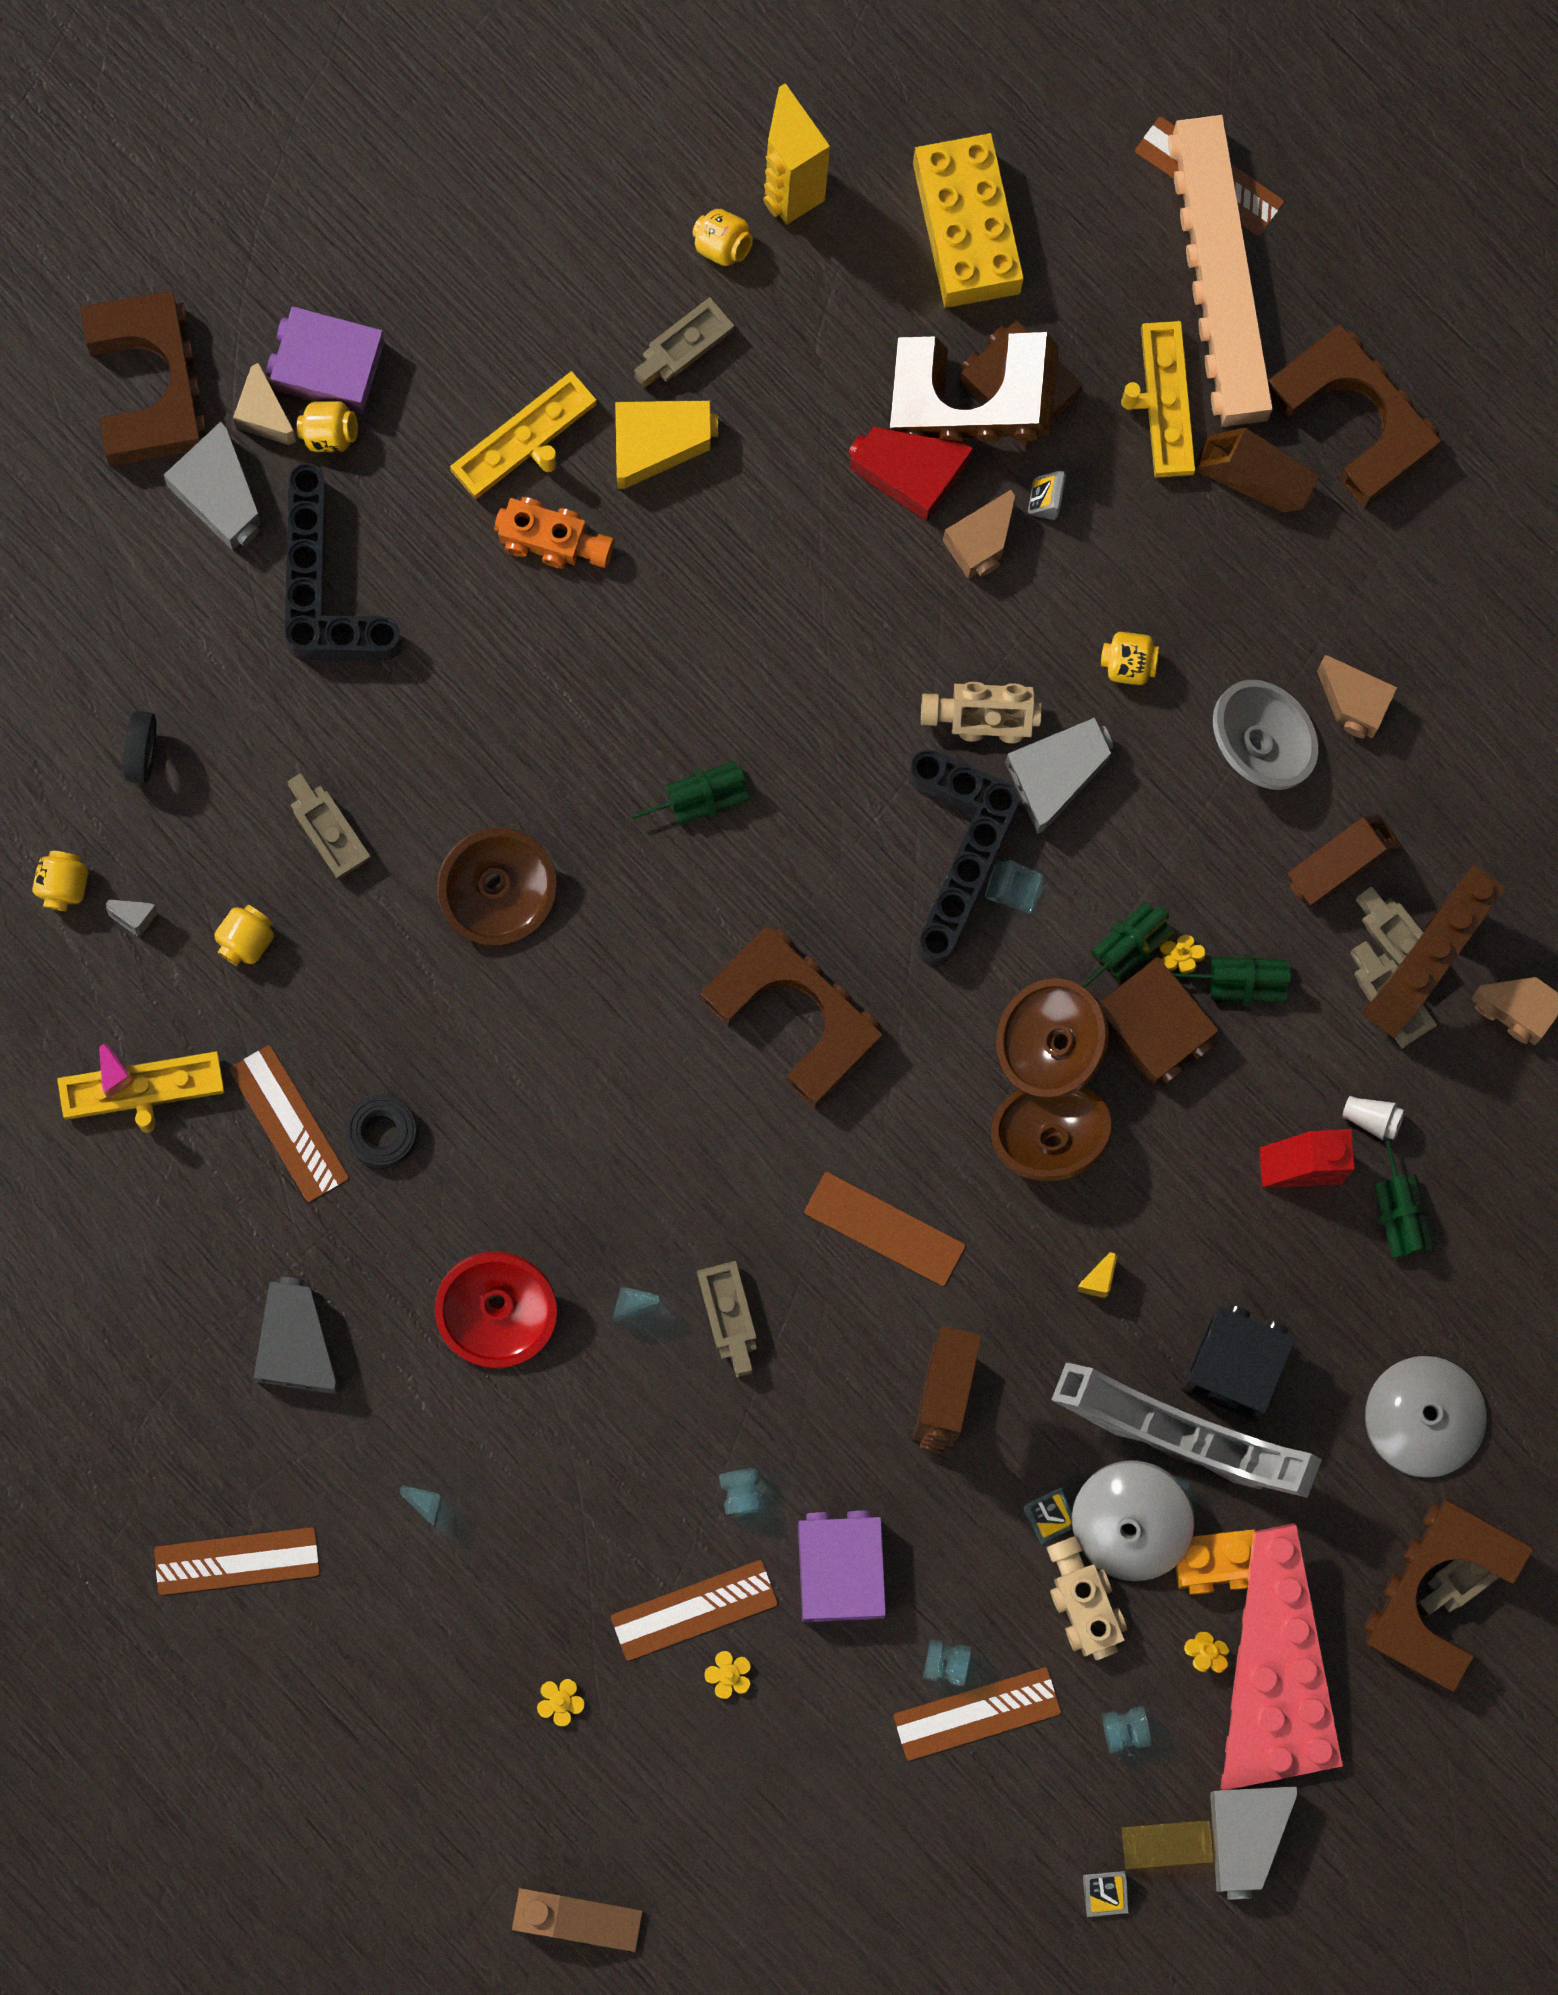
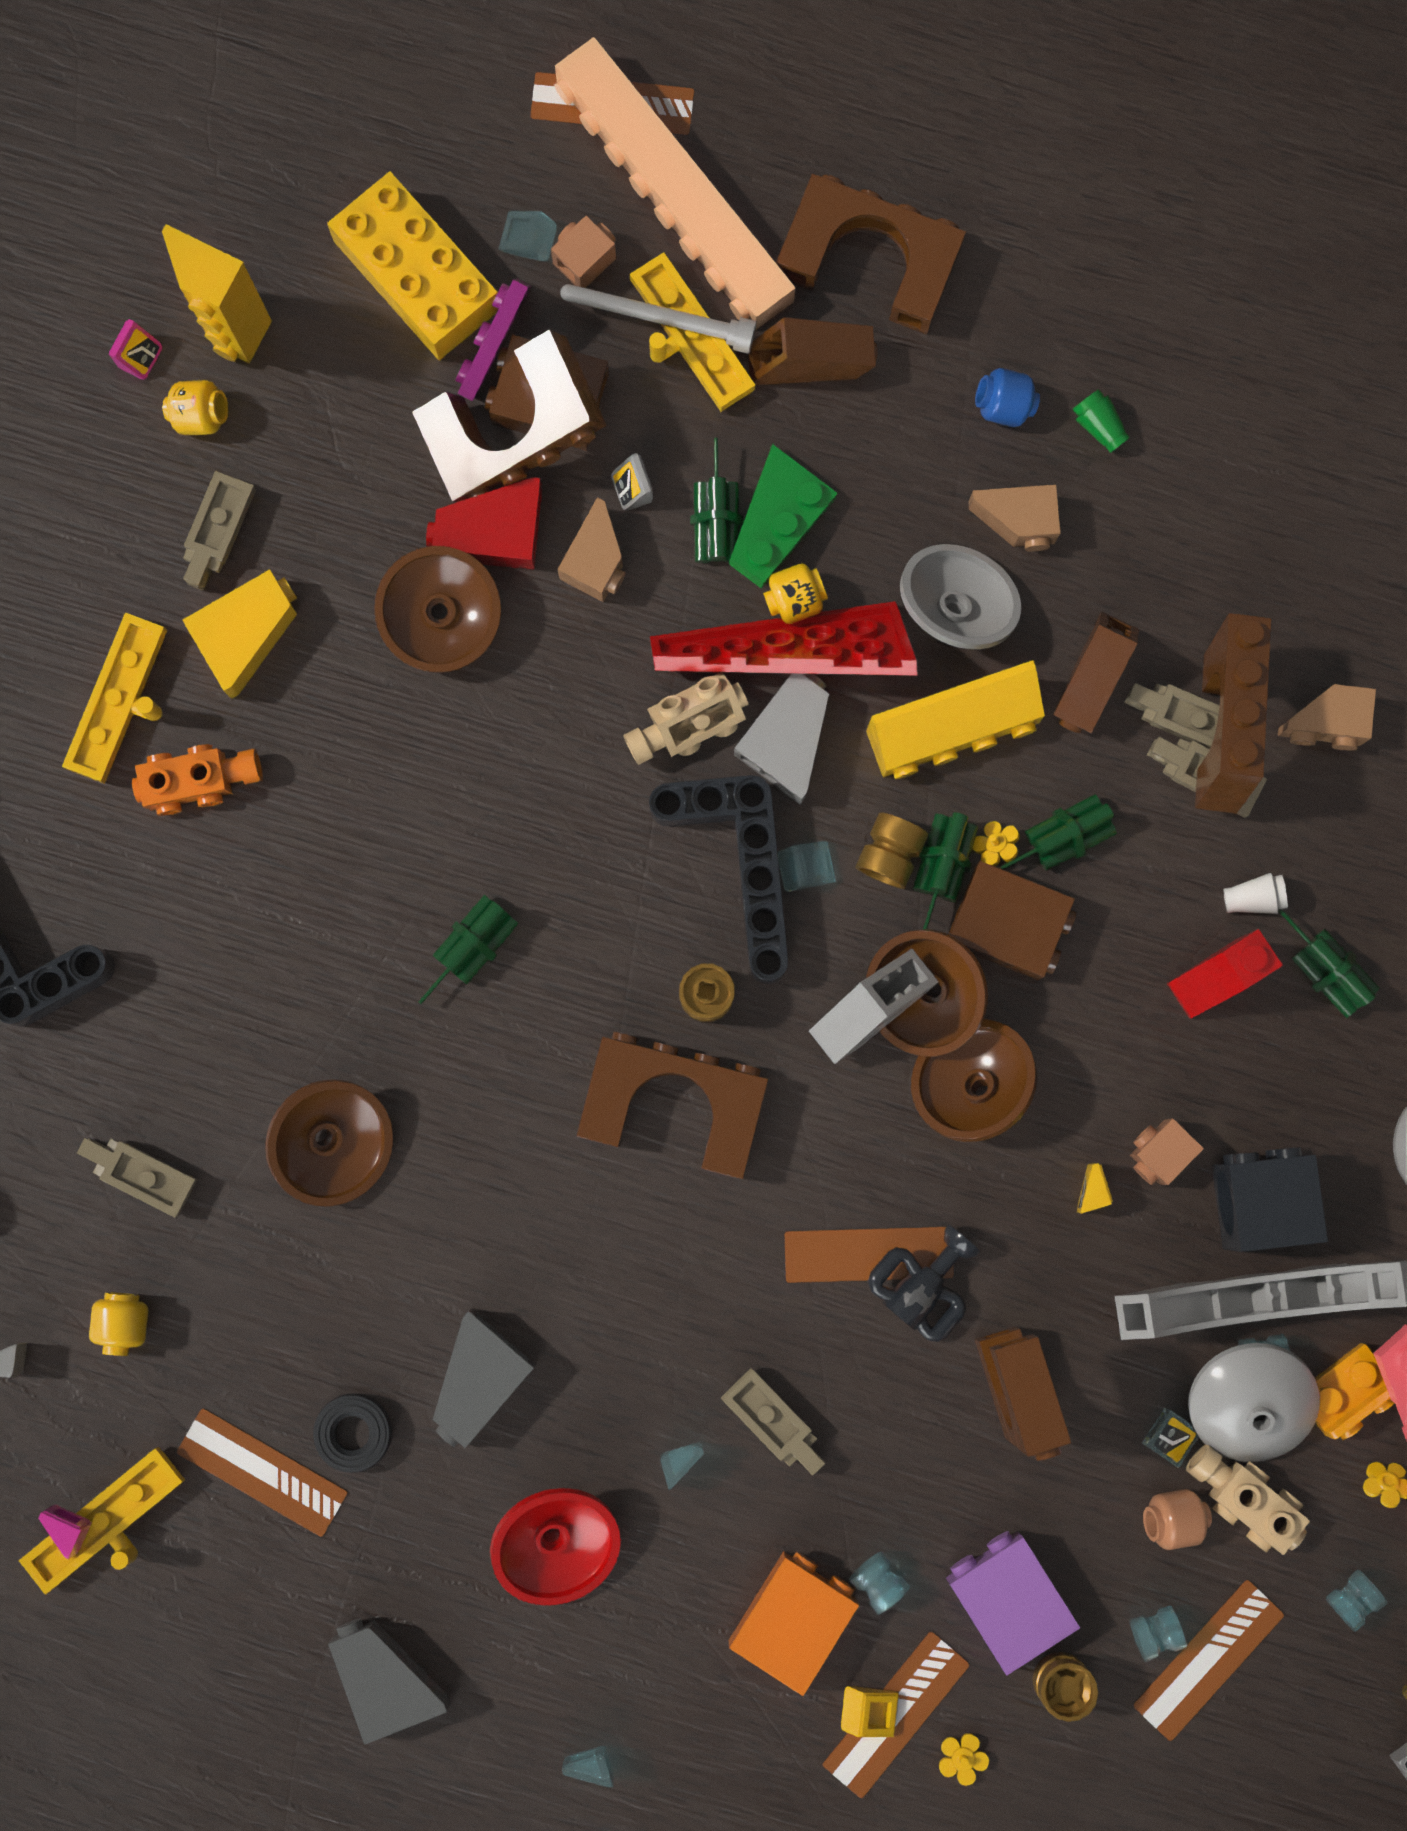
camera: 25 degrees left, 5 degrees up
(507, 1145) = (478, 1380): none -> dark grey slope
(655, 1482) = (794, 1621): none -> orange brick
(674, 1593) = (869, 1712): none -> yellow slope
(699, 164) = (135, 350): none -> slope
(825, 480) = (430, 579): none -> reddish brown dish
(846, 1658) = (1065, 1686): none -> pearl gold wheel
(871, 939) = (706, 992): none -> pearl gold wheel
(913, 1276) = (923, 1286): none -> black piece
(996, 312) = (490, 338): none -> magenta wing
(1001, 1022) = (872, 1005): none -> light grey slope
(1015, 1580) = (1177, 1519): none -> nougat head
(1077, 246) = (528, 235): none -> clear light blue slope
(1093, 907) = (891, 851): none -> pearl gold wheel
(1101, 562) = (715, 517): none -> dark green piece
(1115, 285) = (584, 251): none -> nougat brick
(1136, 712) = (832, 642): none -> red wing
(1153, 589) = (779, 516): none -> green wing
(1175, 1279) = (1163, 1152): none -> nougat brick
(1203, 420) = (736, 333): none -> light grey piece
(1204, 833) = (956, 721): none -> yellow slope
(1399, 595) = (1007, 397): none -> blue head
(1468, 657) = (1101, 420): none -> green cone

